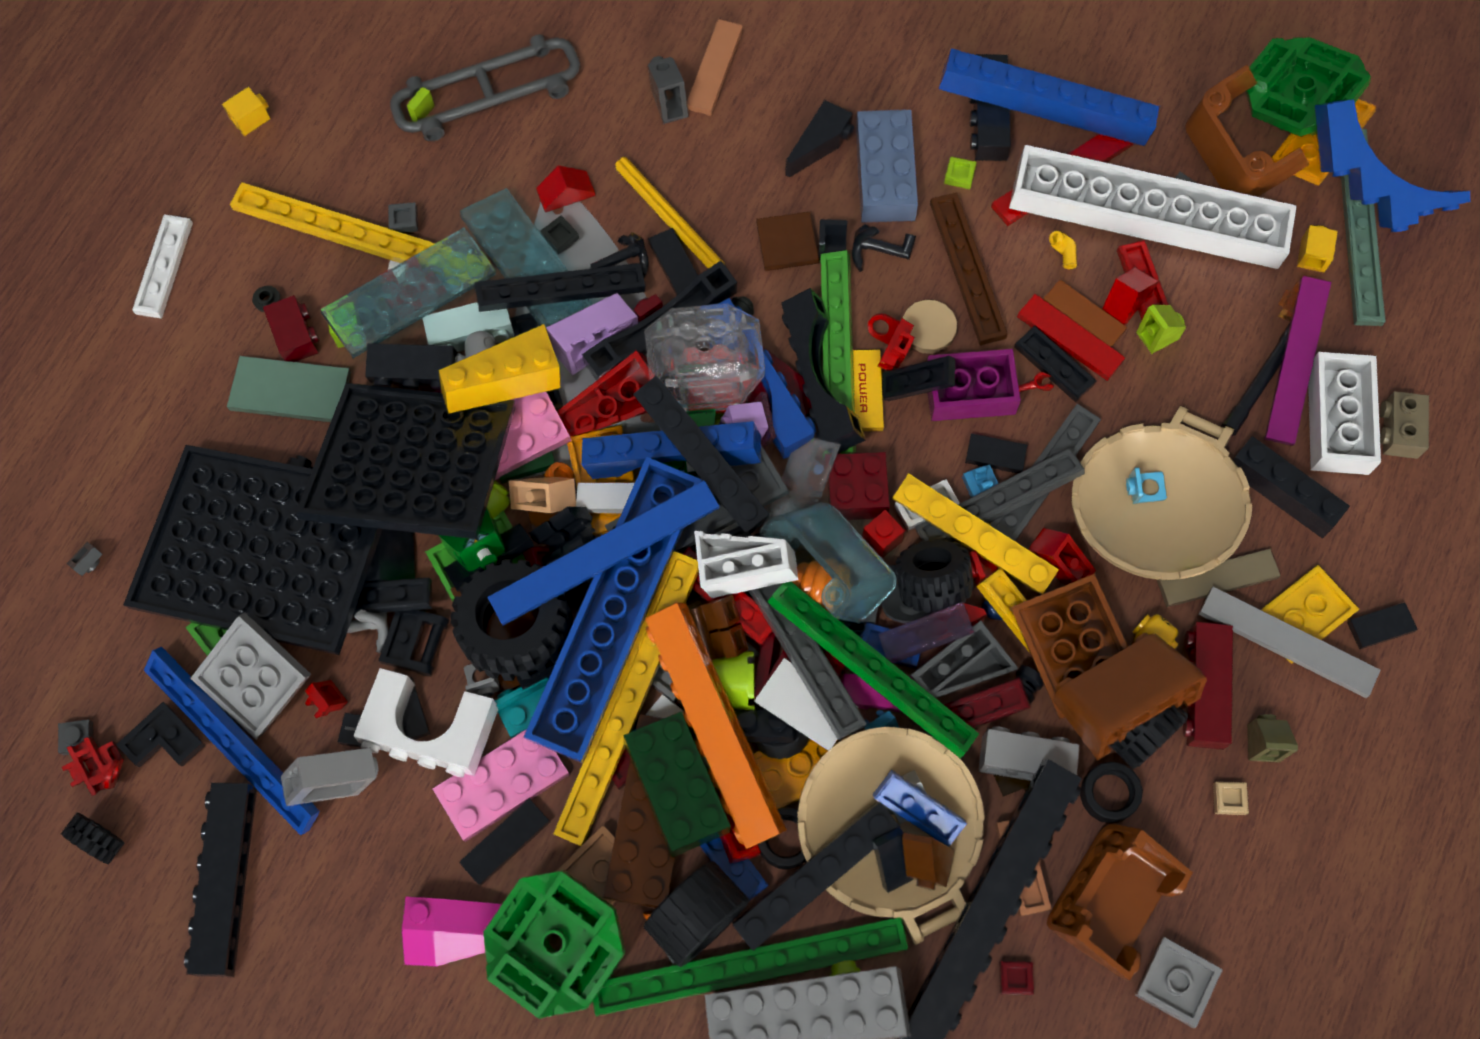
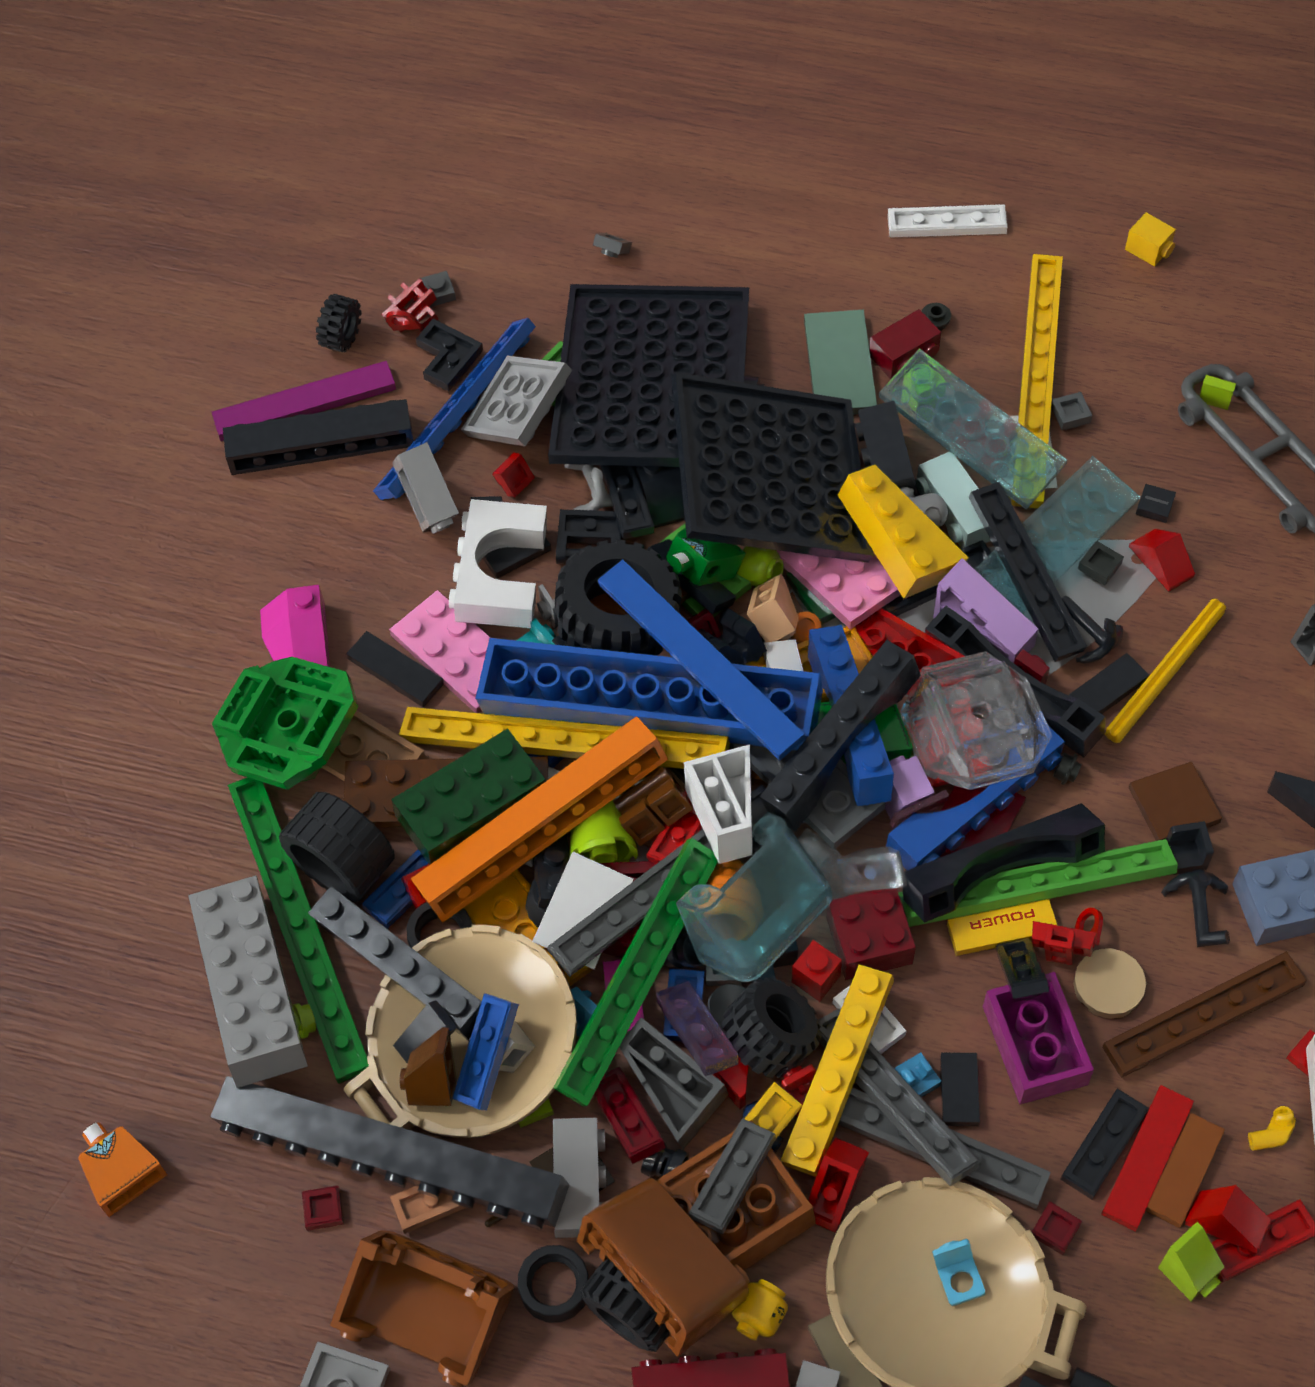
camera: 80 degrees right, 10 degrees down
(168, 891) = (310, 397): none -> magenta tile
(512, 179) = (1155, 503): none -> black tile
(1037, 383) = (1068, 1123): red hand -> none
(1058, 629) = (732, 1176): none -> dark grey tile
(1115, 413) = (1056, 1228): none -> dark red tile

